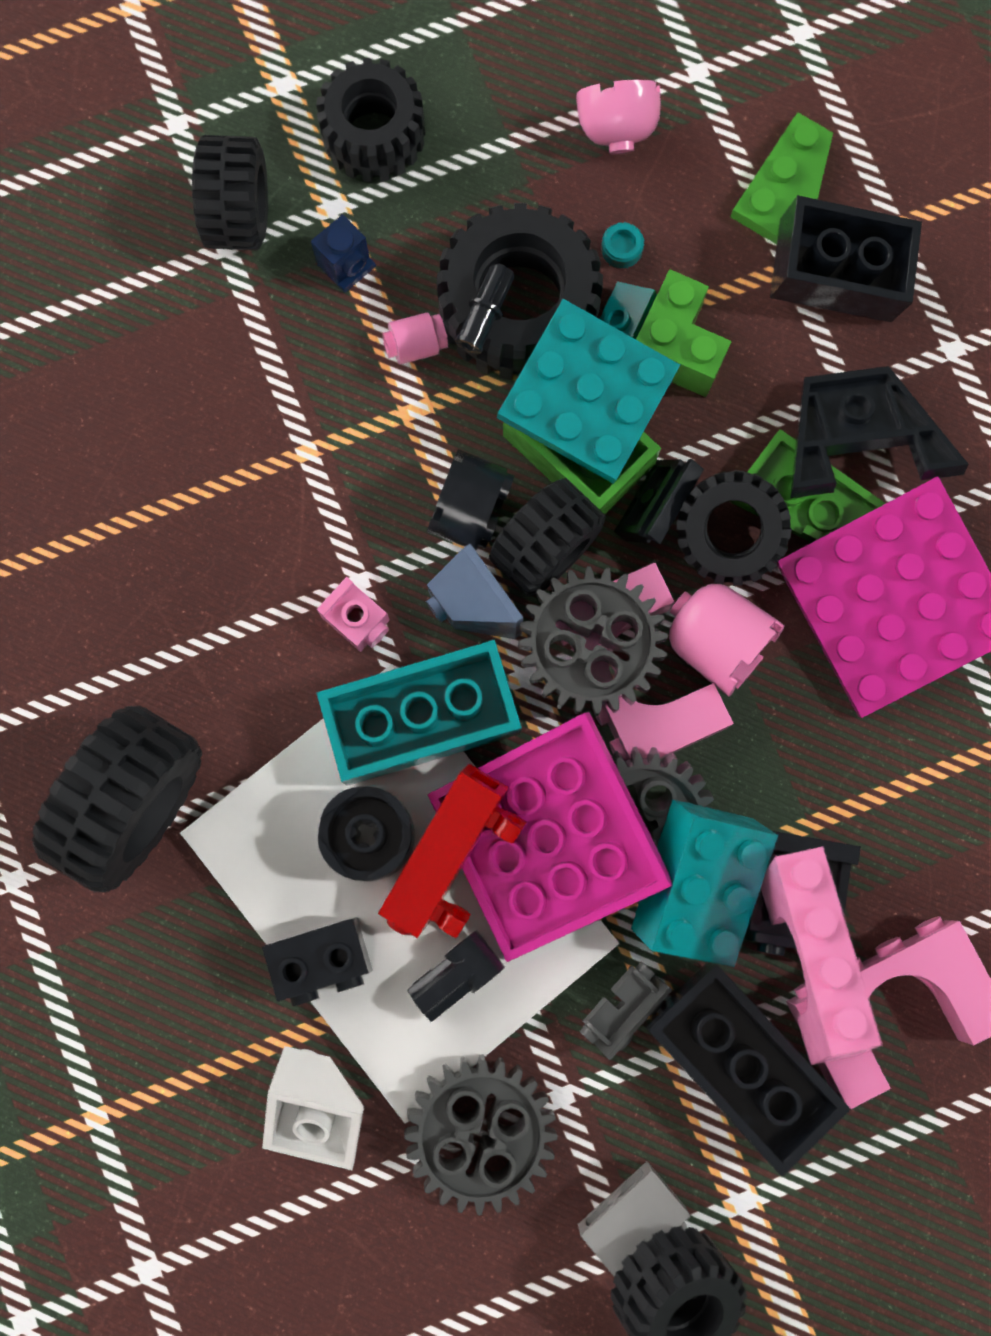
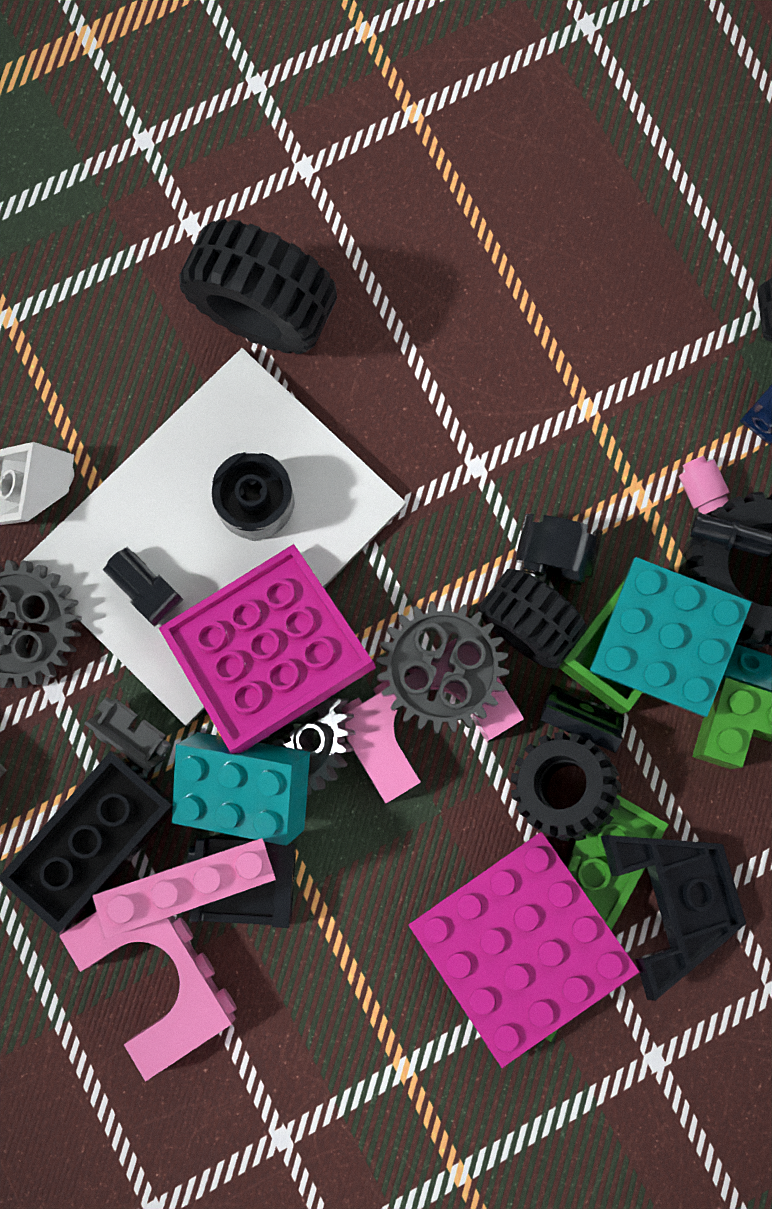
camera: 80 degrees right, 0 degrees up
(318, 960) = (145, 470): black brick -> none
(338, 606) = (451, 451): bright pink brick -> none
(419, 713) = (361, 526): teal brick -> none
(442, 852) = (245, 560): red brick -> none
(473, 598) = (471, 560): sand blue slope -> none
(721, 634) = (465, 785): bright pink cylinder -> none

